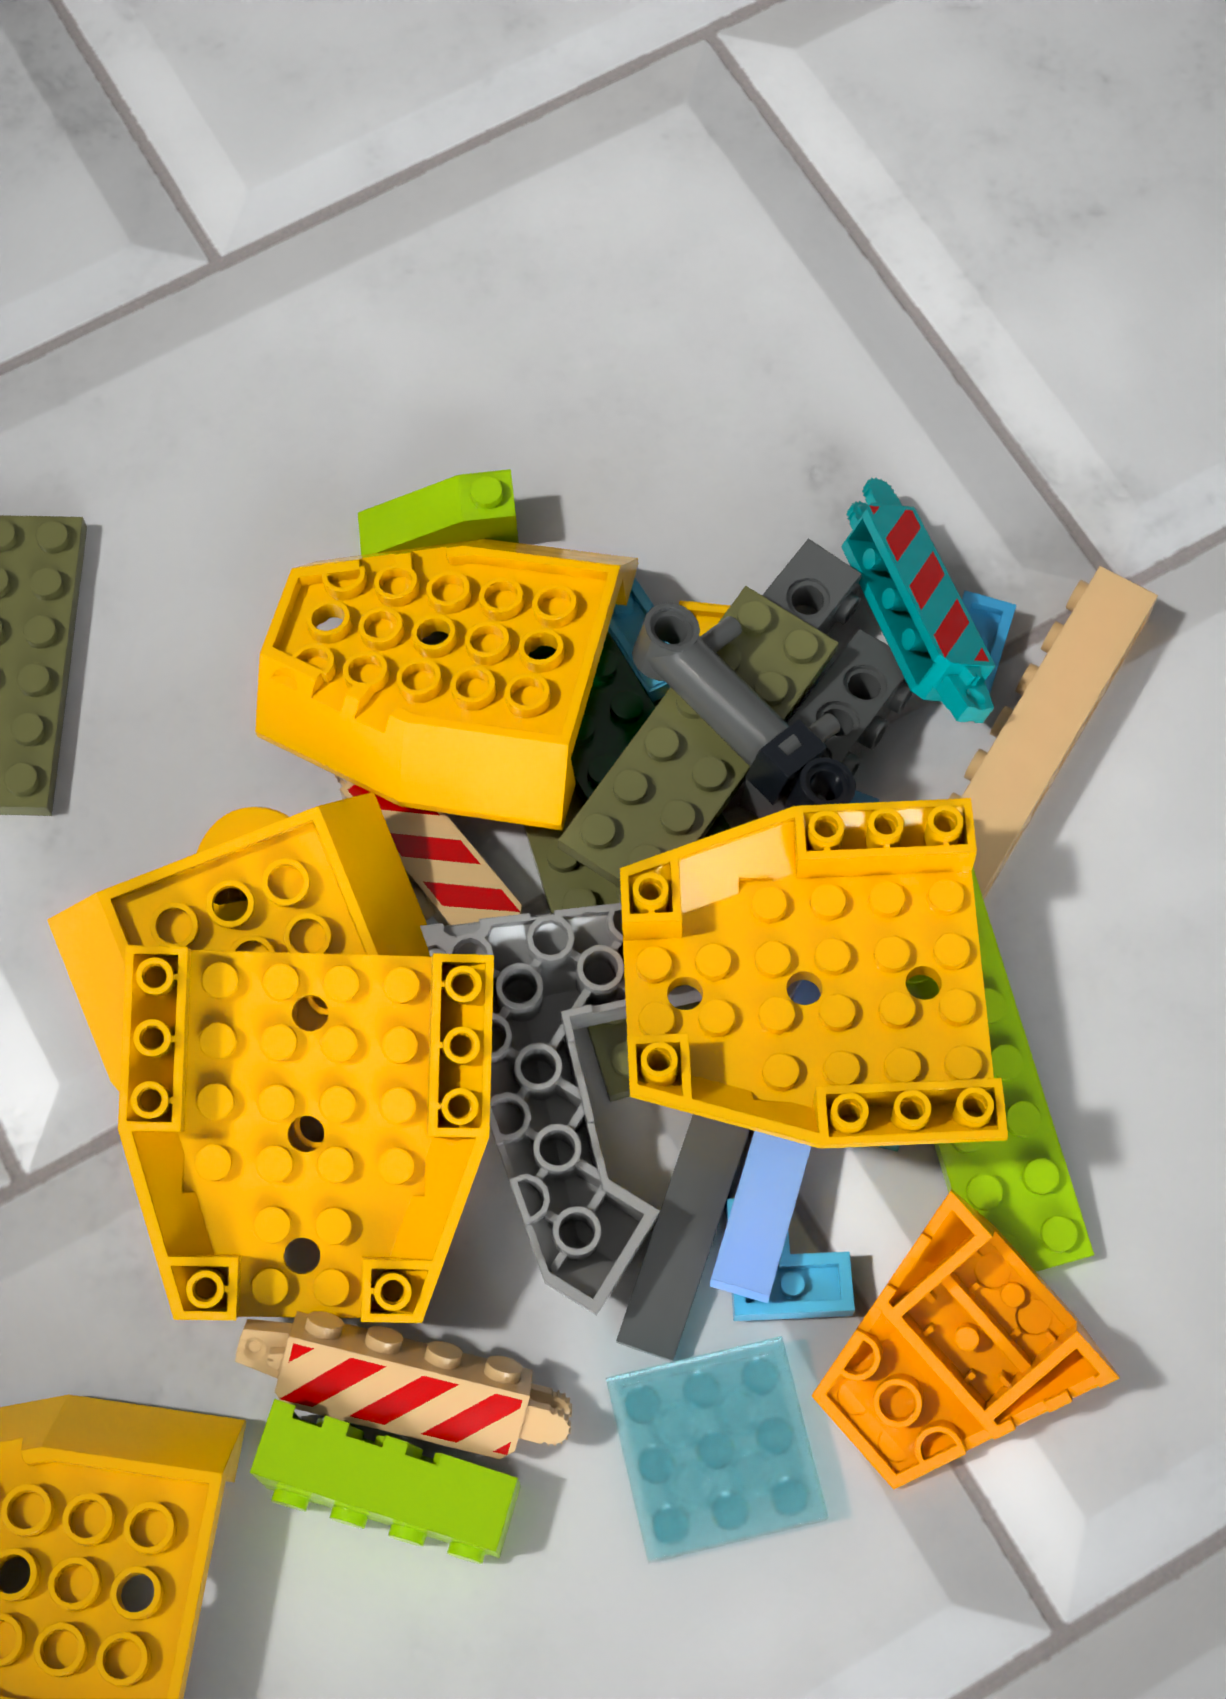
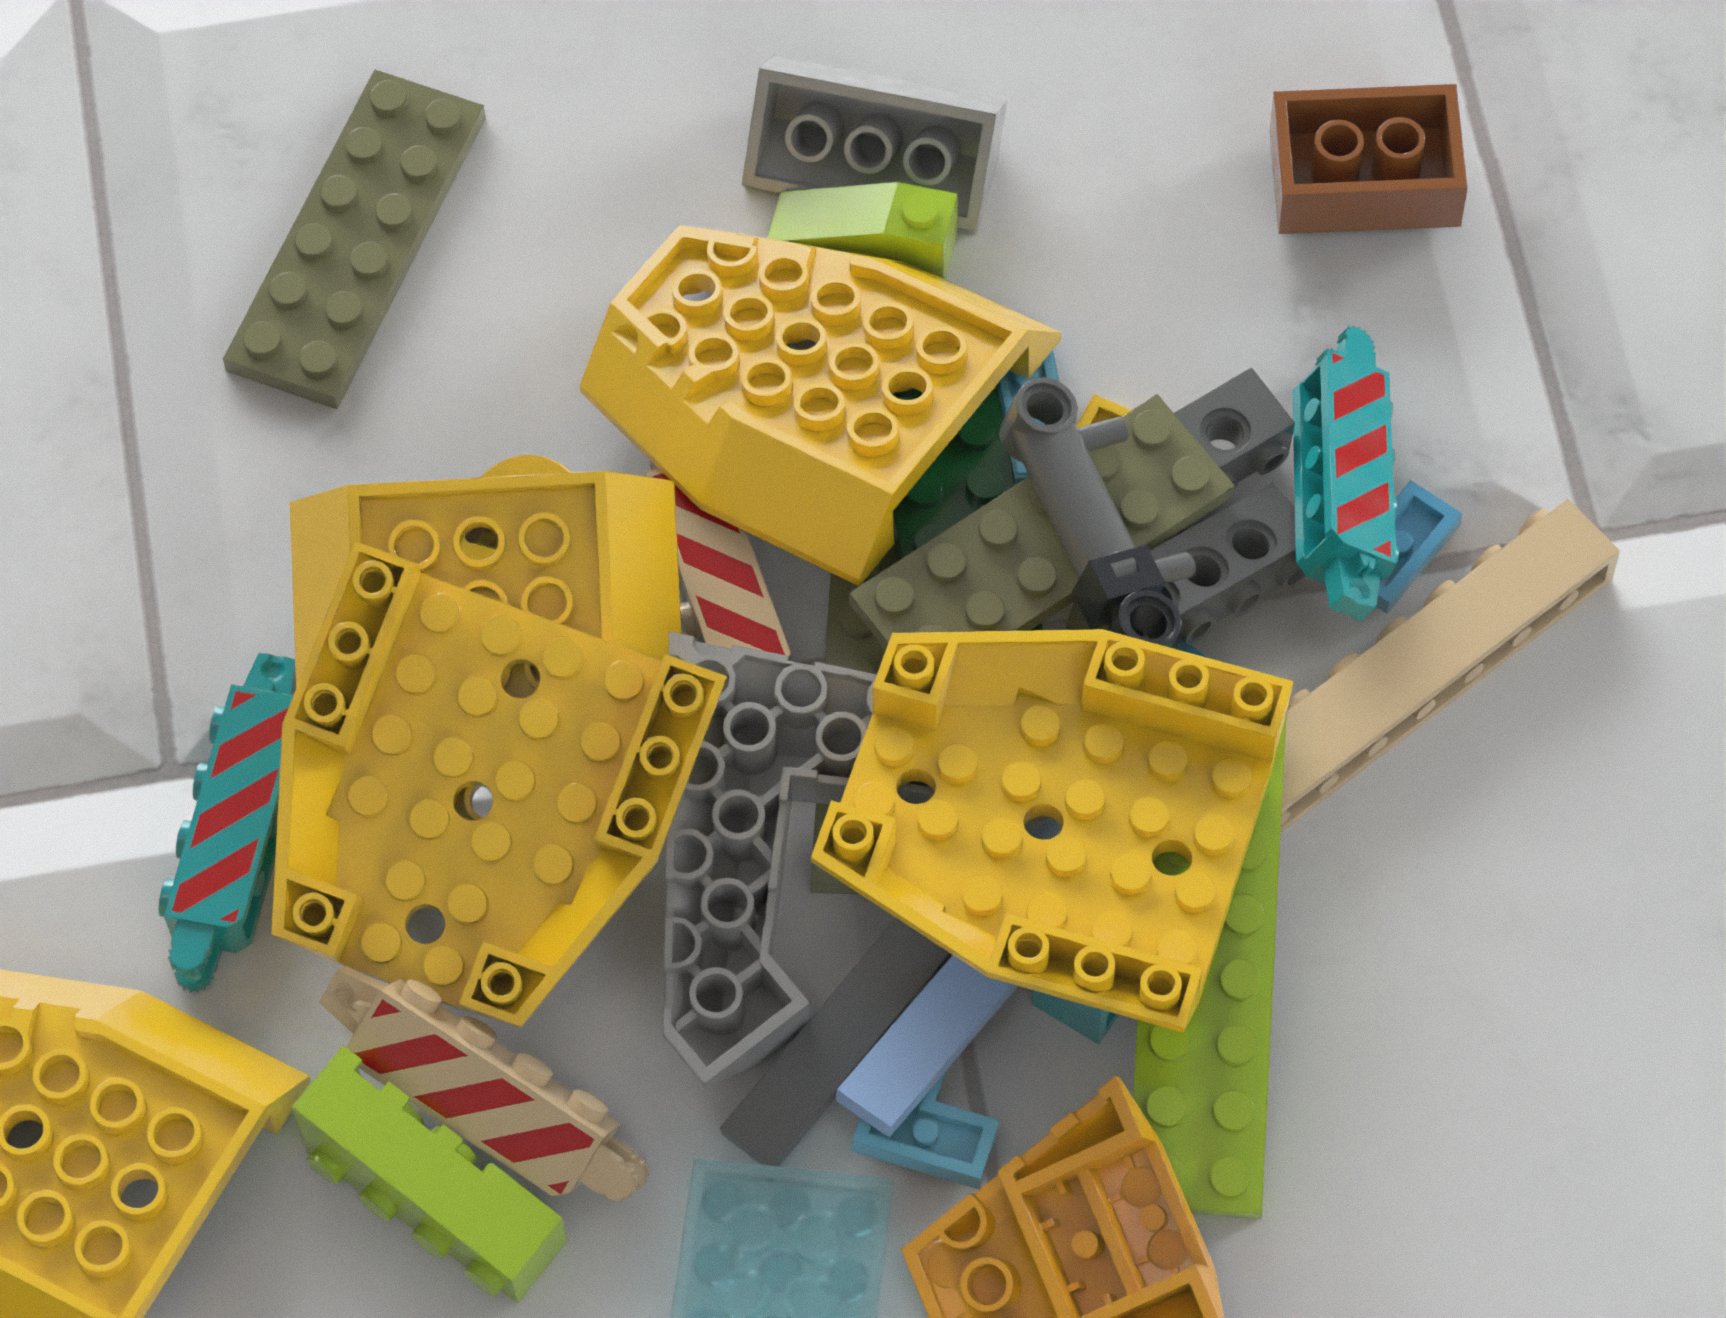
camera: 20 degrees right, 5 degrees down
(98, 1216) = (233, 831): none -> teal hinge
(410, 439) = (860, 128): none -> light grey slope
(826, 337) = (1367, 159): none -> dark orange brick

